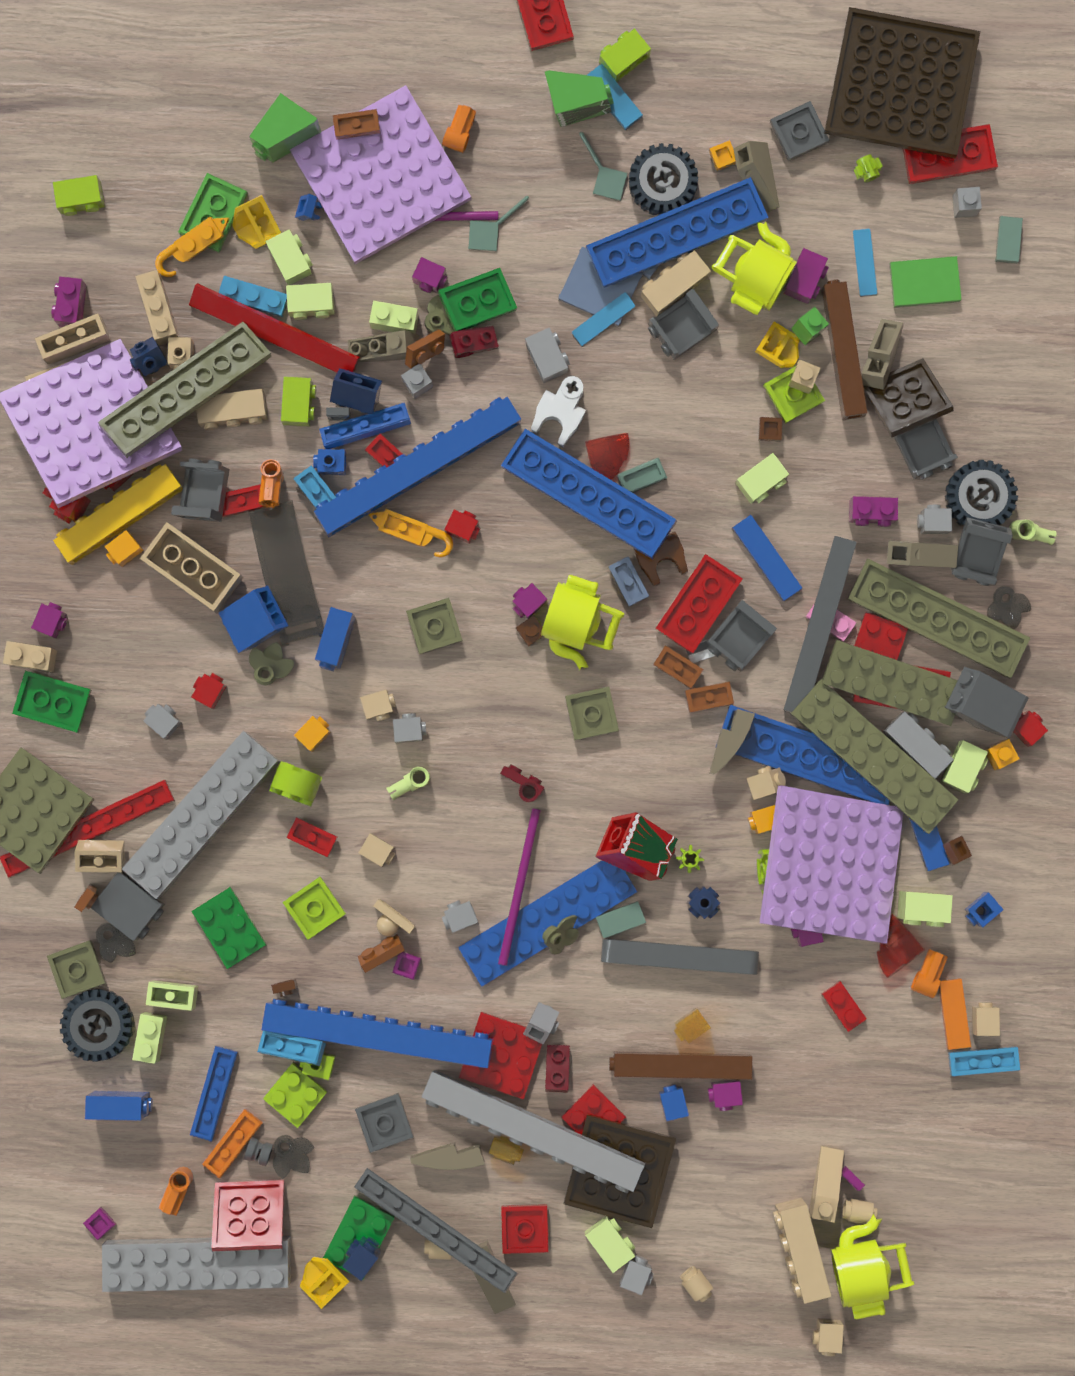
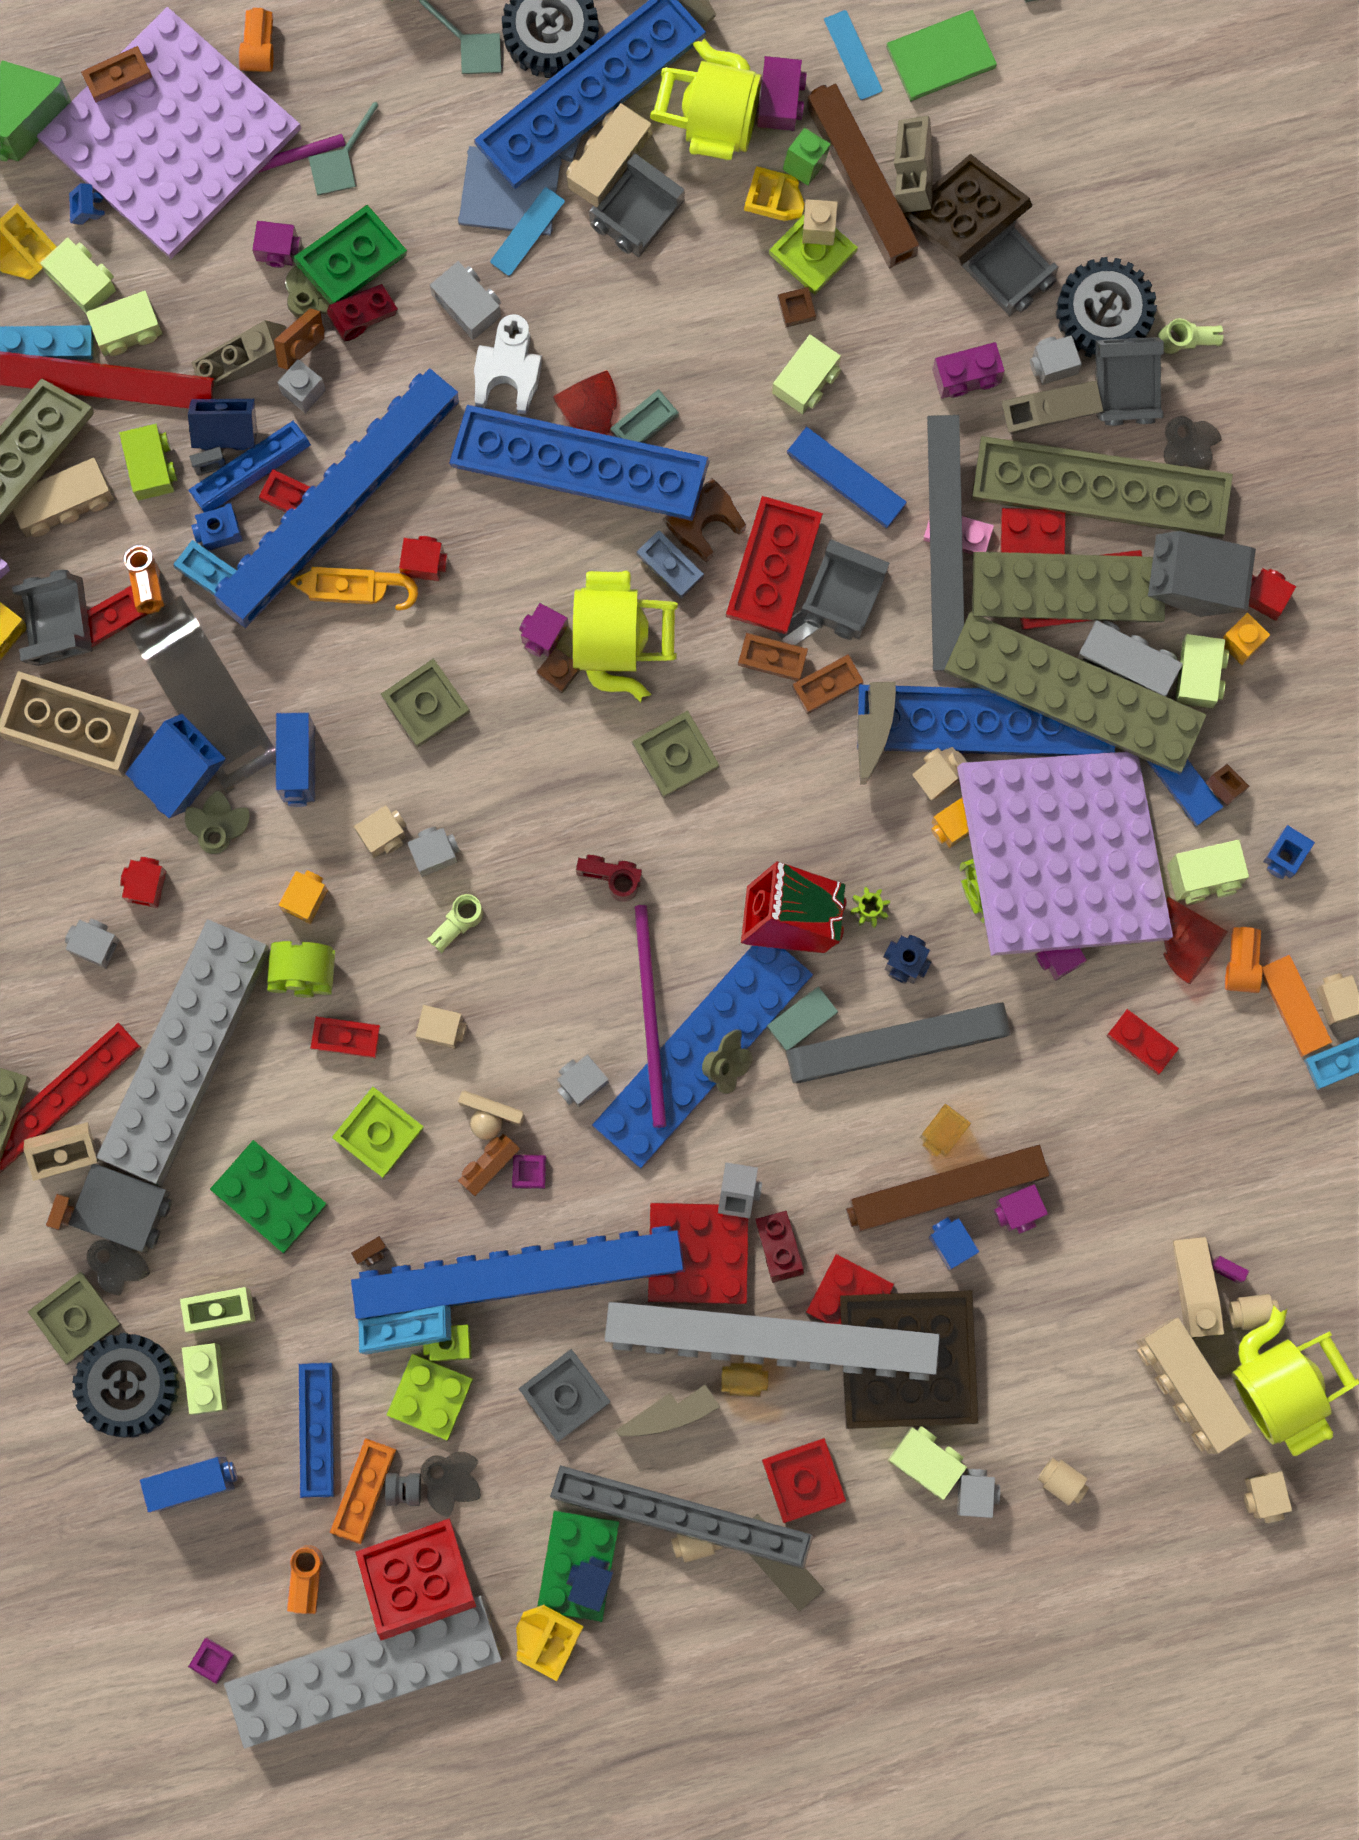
camera: 15 degrees left, 5 degrees down
(393, 317) = (242, 310): yellowish green brick -> none

